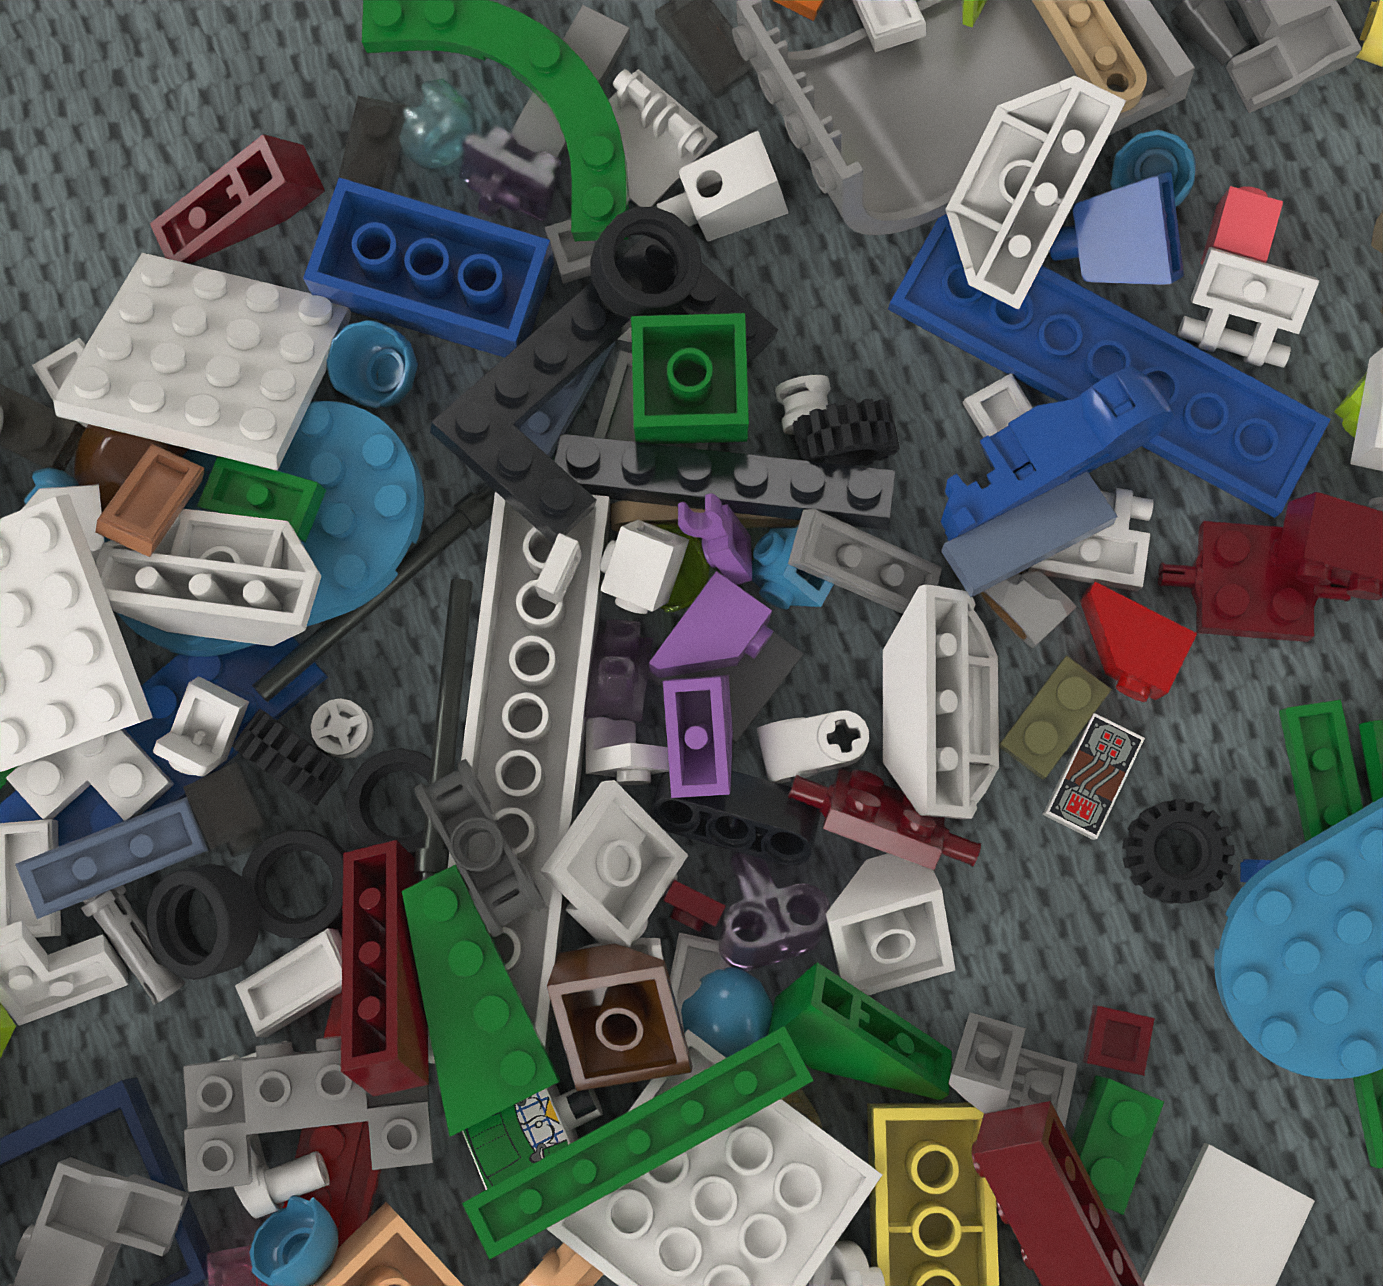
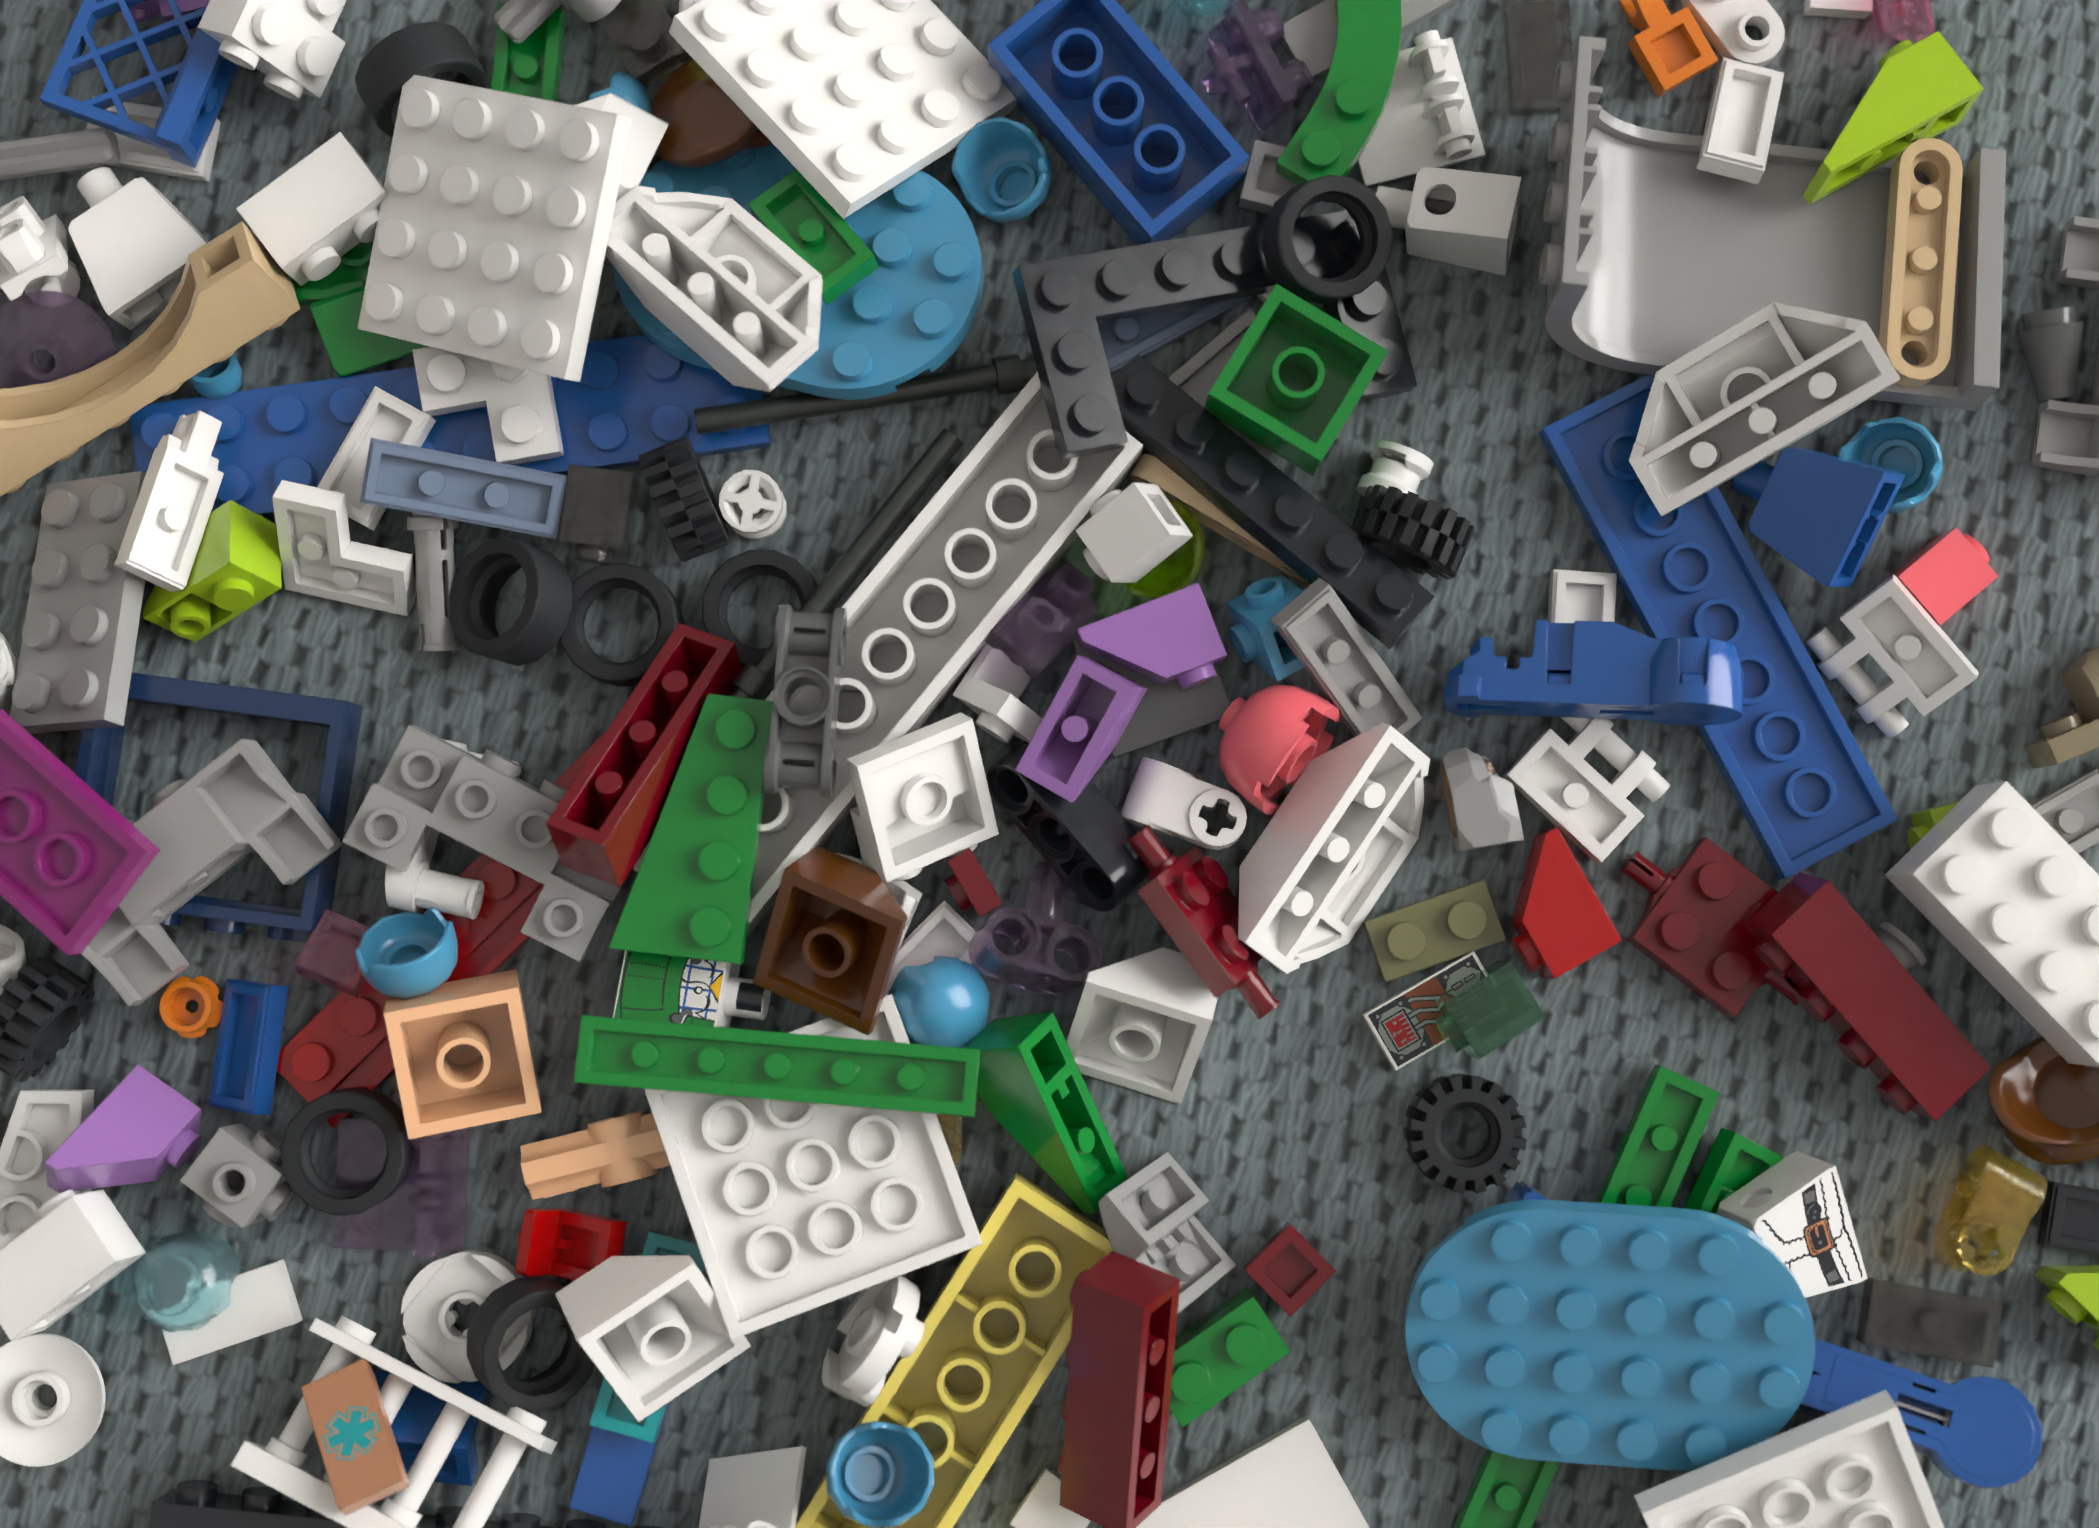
camera: 35 degrees right, 5 degrees up
(150, 500) = (705, 171): nougat tile -> none
(202, 728) = (621, 421): white bracket -> none
(293, 983) = (557, 714): white tile -> none
(559, 569) = (1048, 485): white tile -> none
(723, 537) = (1227, 557): medium lavender plate -> none
(845, 653) = (1273, 741): none -> coral cylinder
(1028, 534) = (1524, 740): sand blue tile -> none
(1135, 749) = (1487, 1010): none -> clear green brick

